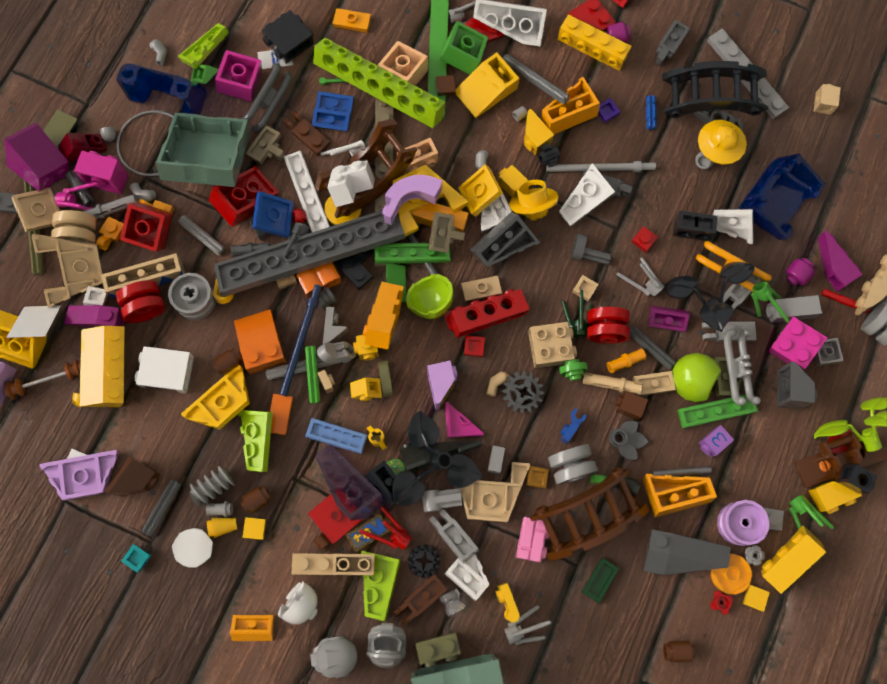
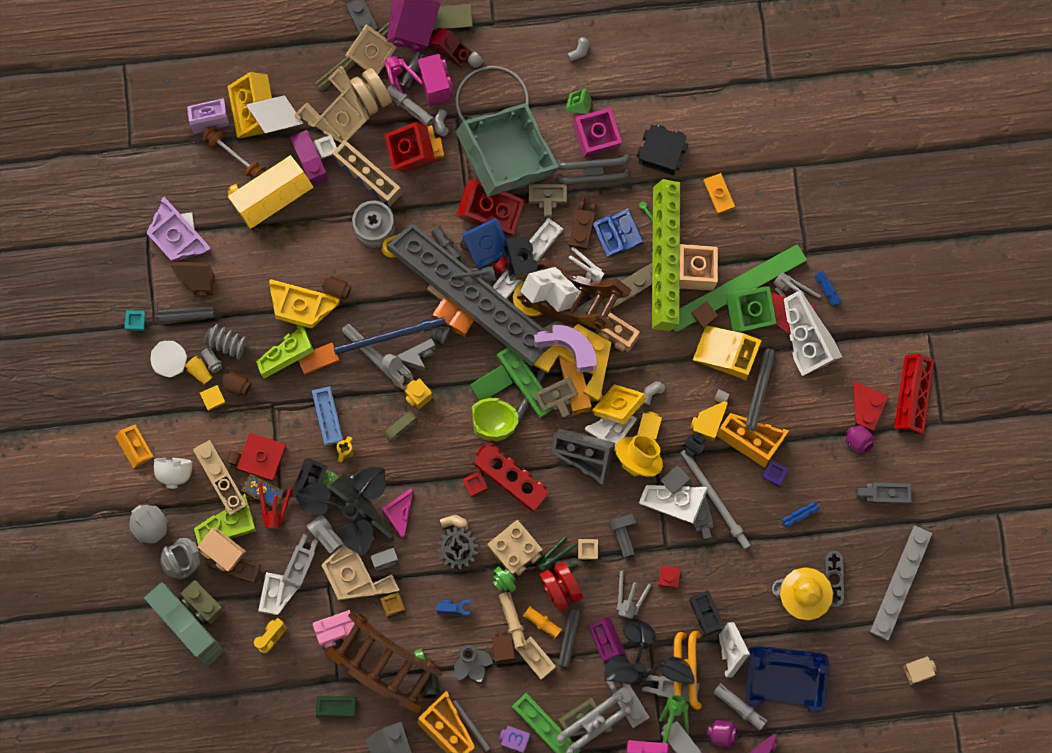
camera: 65 degrees right, 0 degrees up
(110, 231) = (392, 120): light orange plate -> none
(139, 82) = (536, 55): clear blue windscreen -> none
(140, 301) = (342, 186): red wheel -> none
(164, 369) = (298, 242): white panel -> none
(200, 49) = (606, 84): lime wing -> none
(201, 235) = (433, 195): light grey axle -> none
(259, 342) = (369, 303): orange slope -> none
(268, 59) = (632, 145): white sticker -> none
(304, 195) = (519, 247): none -> black brick
(312, 374) = (367, 363): bright green axle -> none
(327, 381) = (368, 379): tan plate -> none
(349, 488) = (288, 452): wedge -> none
(354, 270) = (481, 344): black plate -> none
(366, 389) = (380, 415): yellow brick -> none
(384, 316) = (449, 391): light orange wedge -> none
(403, 601) = (221, 549): none -> light nougat brick
(416, 567) = (275, 553): black gear -> none
(441, 381) = (422, 474): lavender slope -> none
(452, 602) = (246, 593): clear wheel -> none
(481, 288) = (532, 460): tan plate -> none
(516, 634) = (250, 659): light grey plant -> none
(570, 184) = (676, 480): none -> dark grey panel
(573, 466) = (416, 626): light grey wheel -> none
(594, 42) = (835, 422): yellow brick -> none
(695, 376) = (564, 689): lime cylinder -> none
(715, 69) = (869, 546): black fence -> none
(791, 244) = (739, 706): none -> light grey pin

